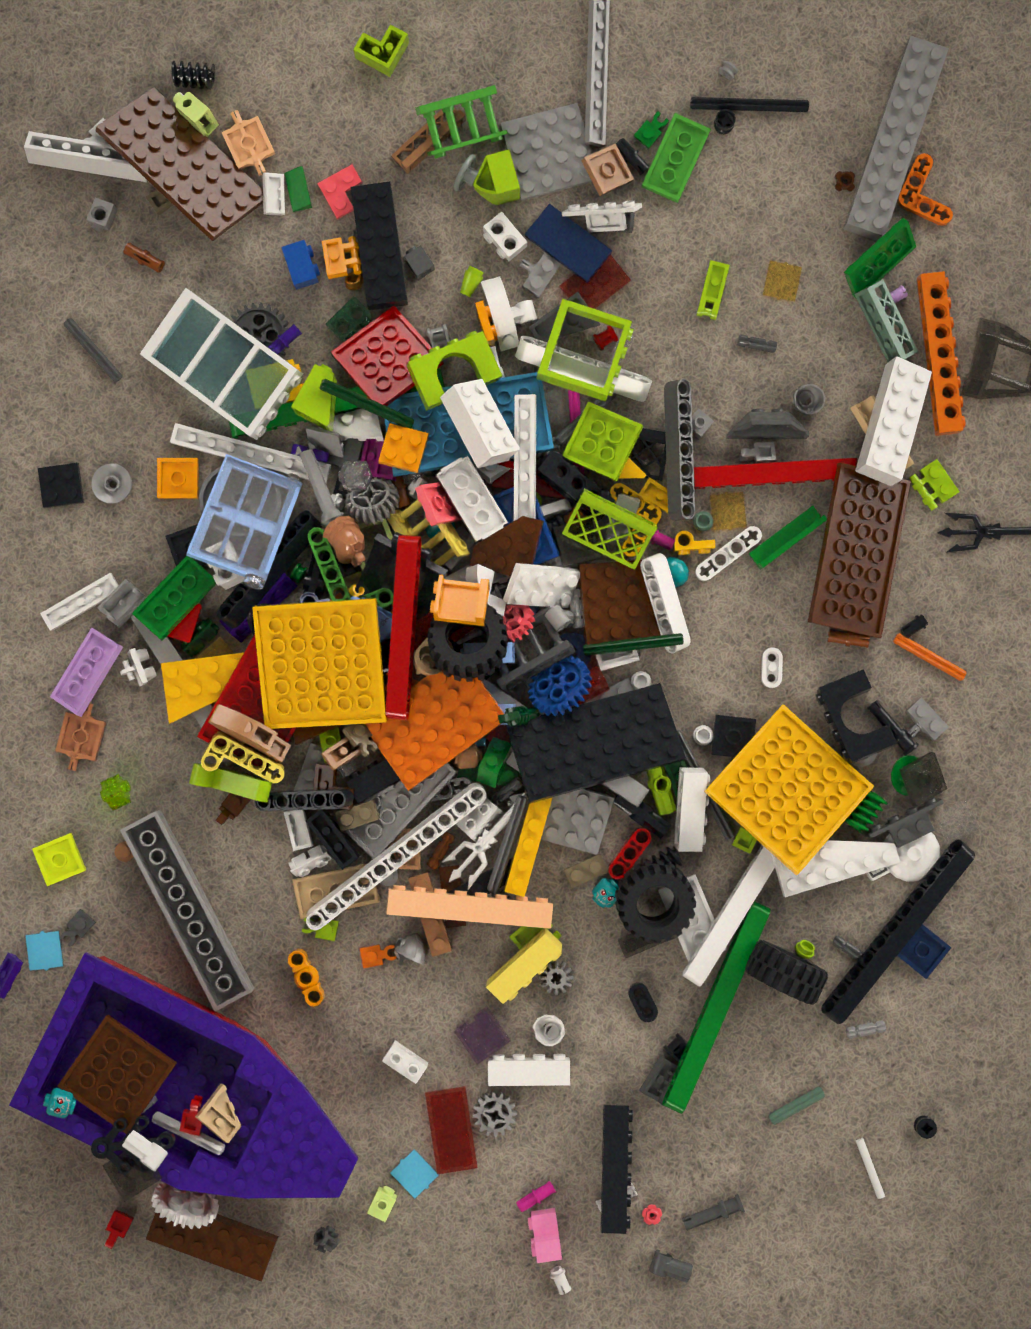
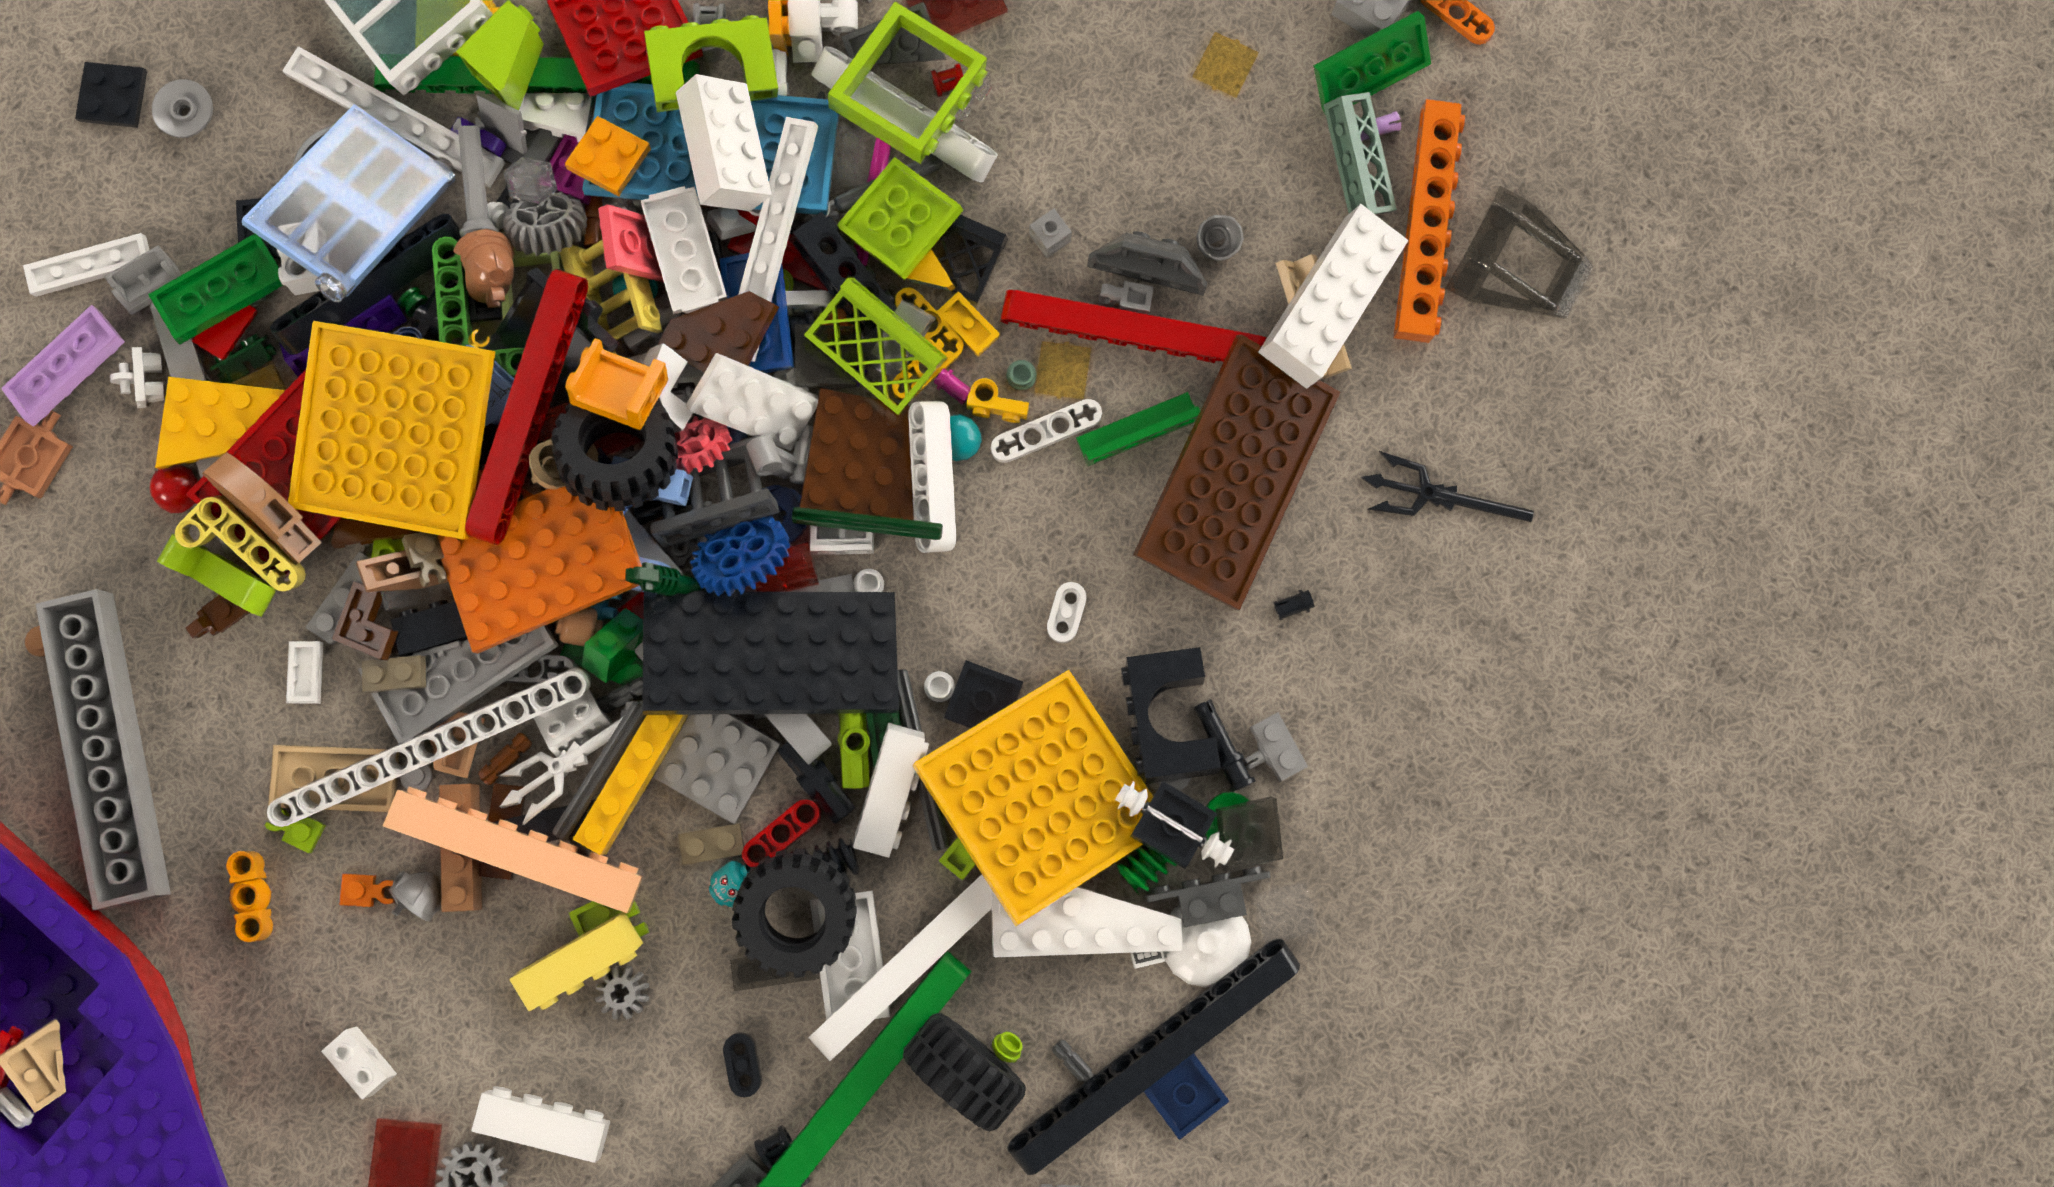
camera: 15 degrees right, 5 degrees down
(115, 792) = (51, 549): clear neon green brick -> none
(177, 478) = (279, 124): light orange plate -> none
(180, 733) = (170, 486): none -> red hair
(301, 866) = (293, 726): white hinge -> none
(313, 800) = (322, 629): black beam -> none
(332, 838) = (349, 706): black brick -> none
(366, 403) = (567, 75): dark green axle -> none
(489, 1044) = (496, 1063): clear purple piece -> none
(555, 1033) = (577, 1075): white hair -> none
(679, 450) = (1013, 273): dark grey beam -> none
(713, 289) = (1121, 50): lime plate -> none
(757, 343) = (1166, 142): dark grey axle -> none
(848, 638) = (1191, 598): dark orange pin -> none
(877, 786) = (1174, 825): none -> black plate
(929, 657) = (1305, 656): orange axle -> none
(939, 482) = (1382, 405): lime plate -> none

